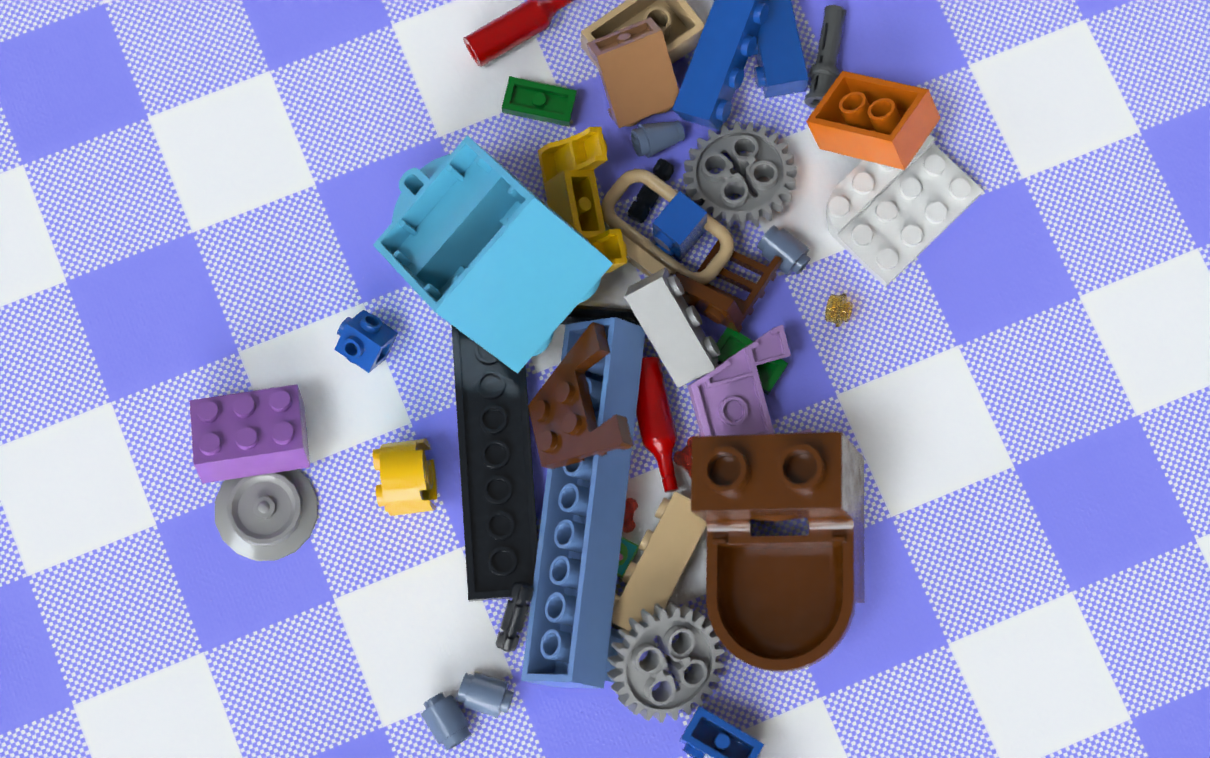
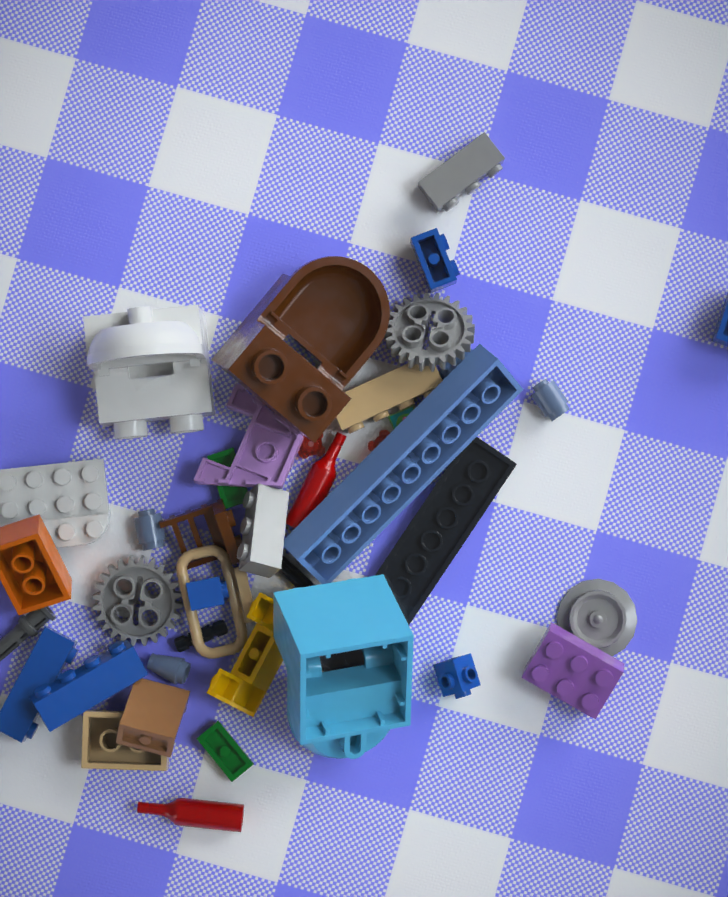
camera: 140 degrees left, 10 degrees up
(405, 477) = (498, 567): yellow brick -> none
(446, 720) = (585, 402): sand blue brick -> none
(514, 616) = (497, 431): black axle -> none
(564, 410) = (372, 527): reddish brown wing -> none
(838, 309) = (147, 466): clear yellow plate -> none
(916, 395) = (150, 369): none -> white piece

